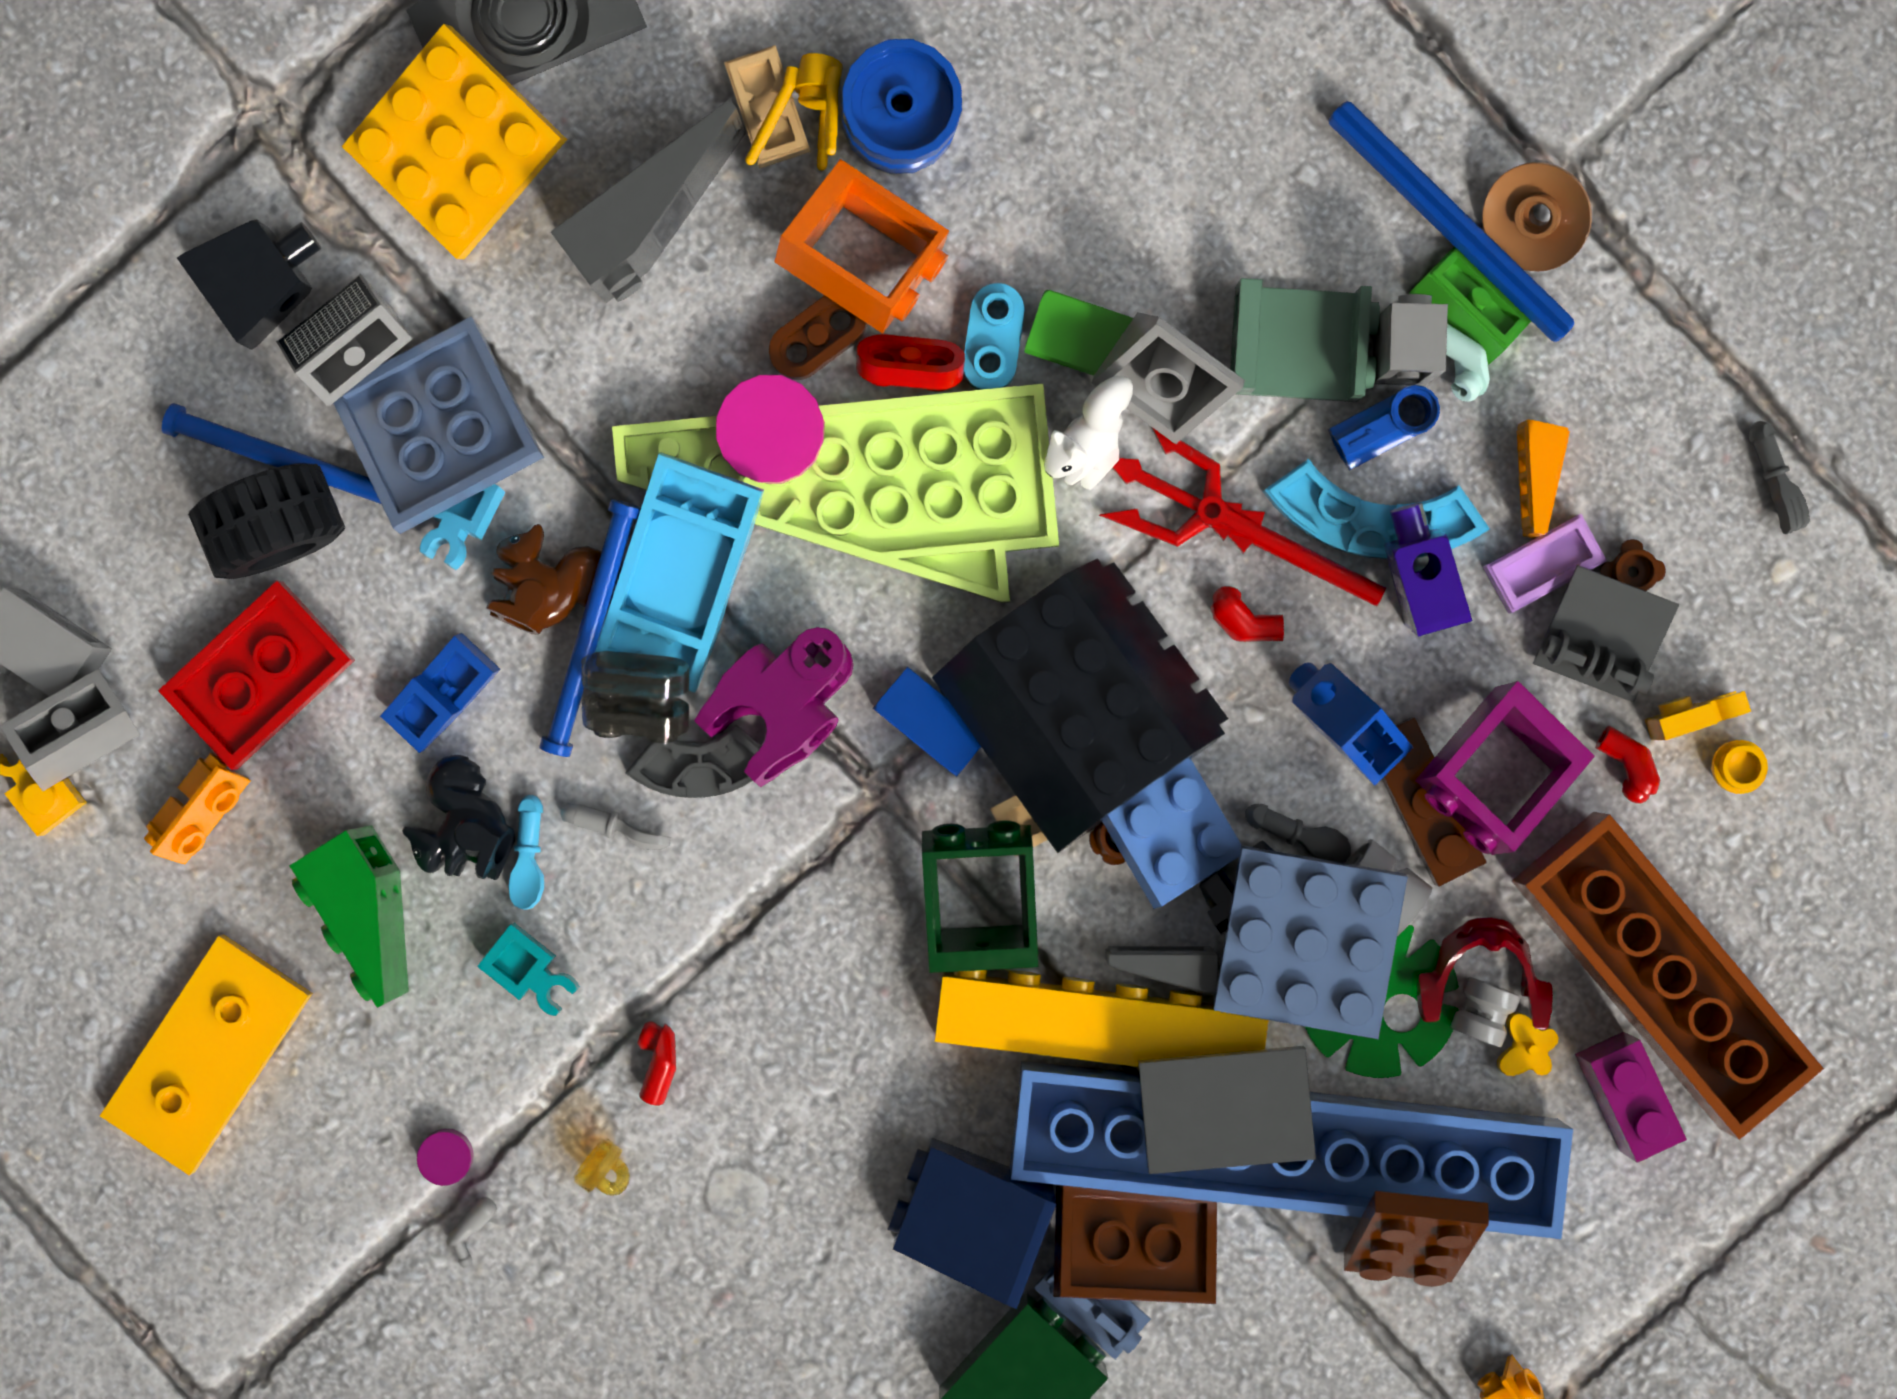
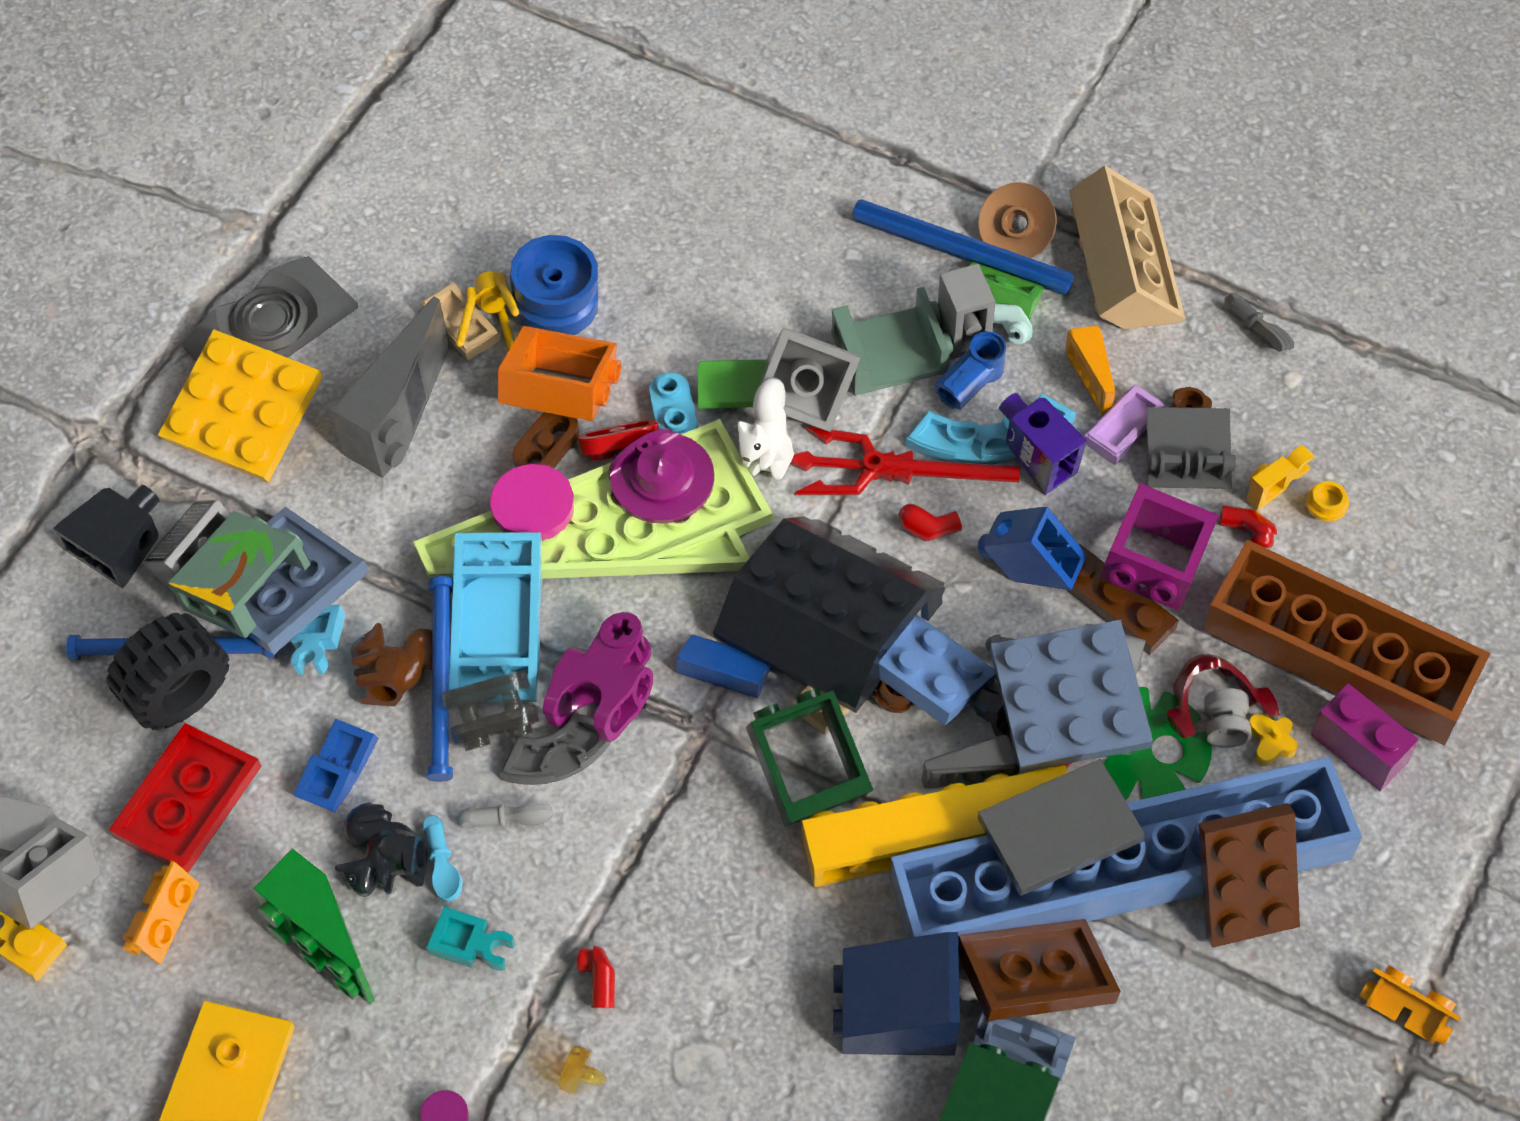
camera: 20 degrees left, 30 degrees down
(380, 410) = (232, 569): none -> sand green panel
(943, 448) = (662, 477): none -> magenta hat
(1656, 311) = (1125, 252): none -> tan slope

